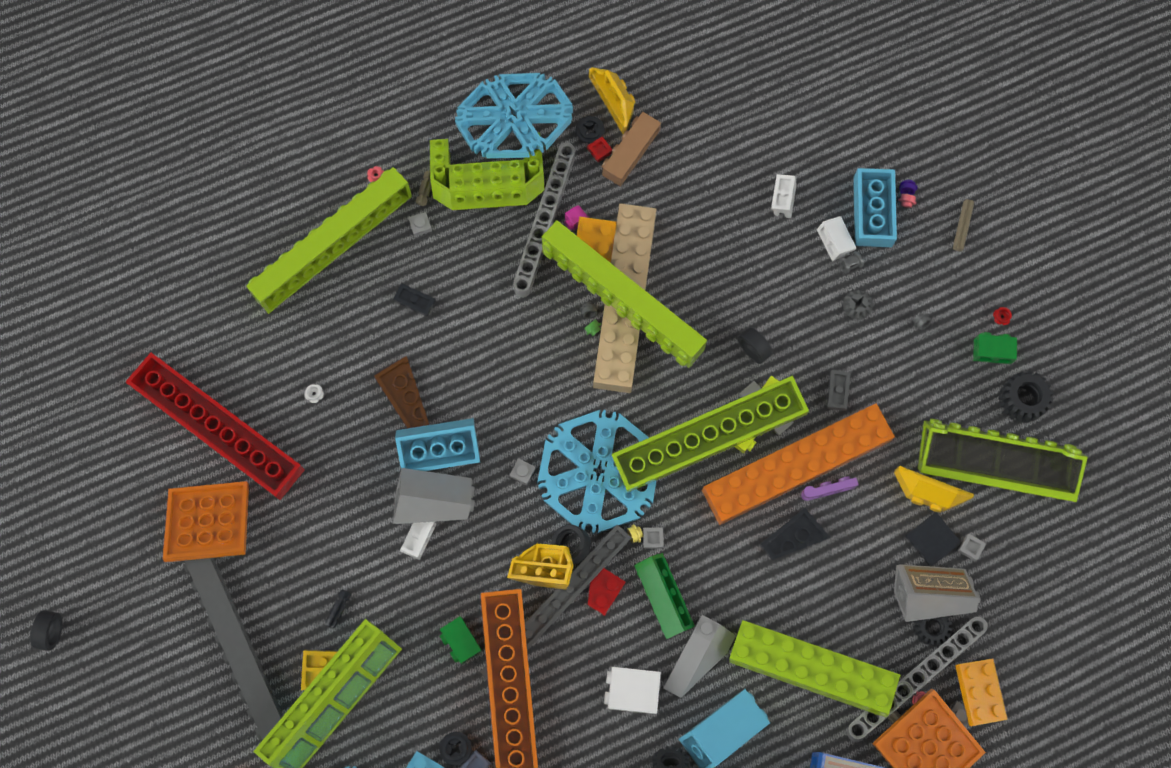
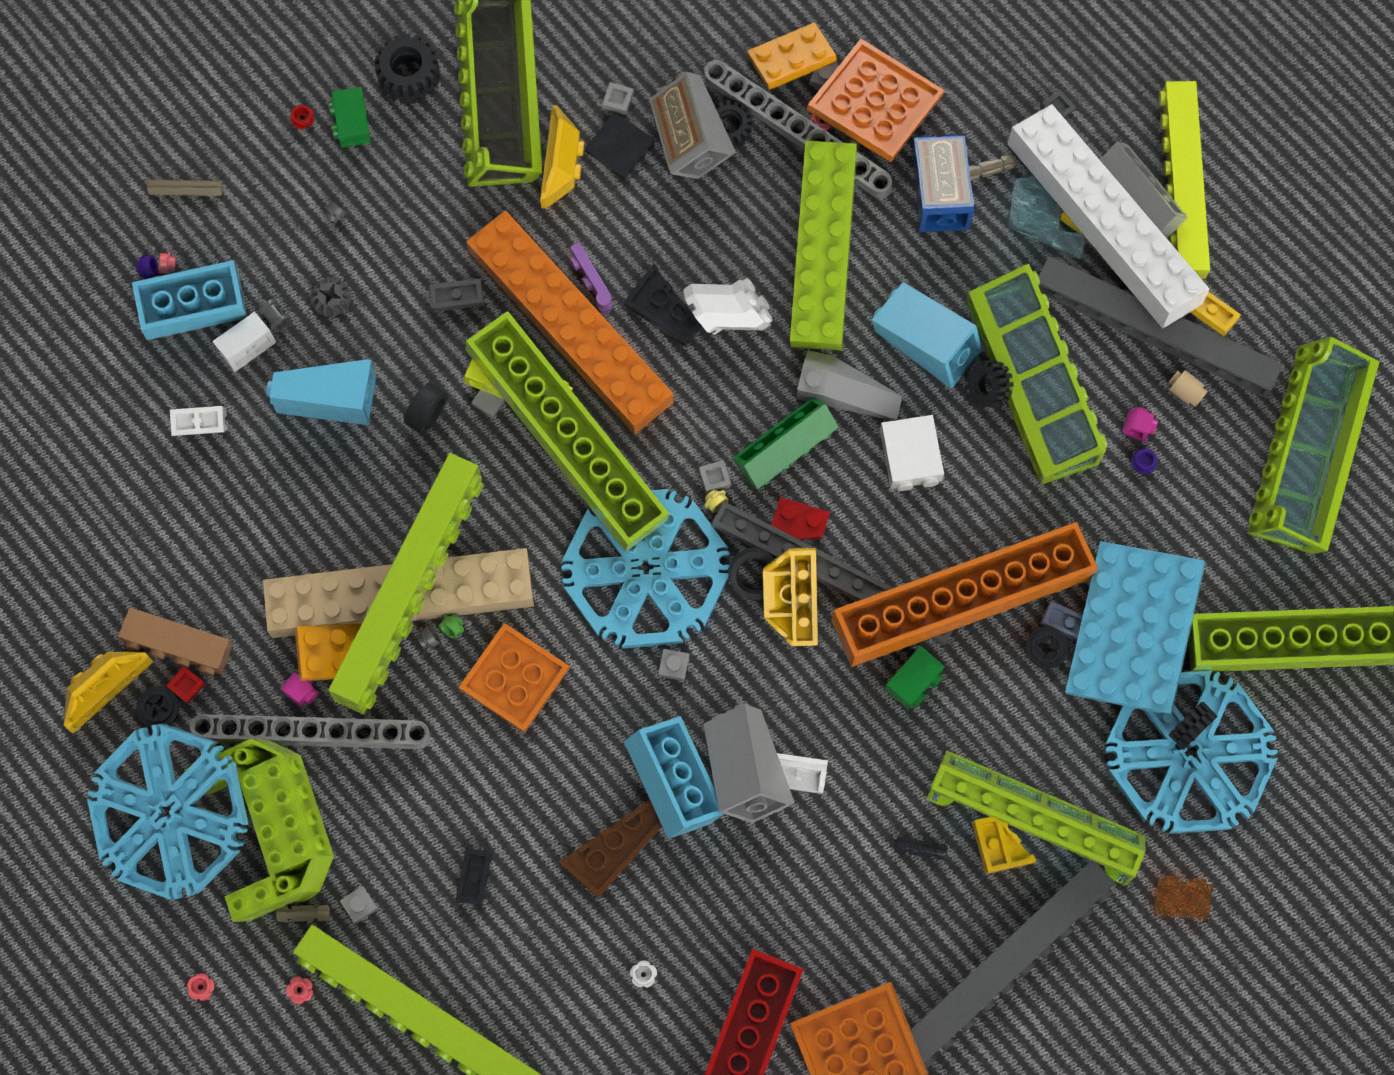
camera: 105 degrees left, 0 degrees up
(397, 112) = (194, 982): none -> coral plate
(544, 360) = (514, 677): none -> orange plate
(781, 581) = (728, 306): none -> white brick
(782, 287) = (326, 392): none -> medium azure slope

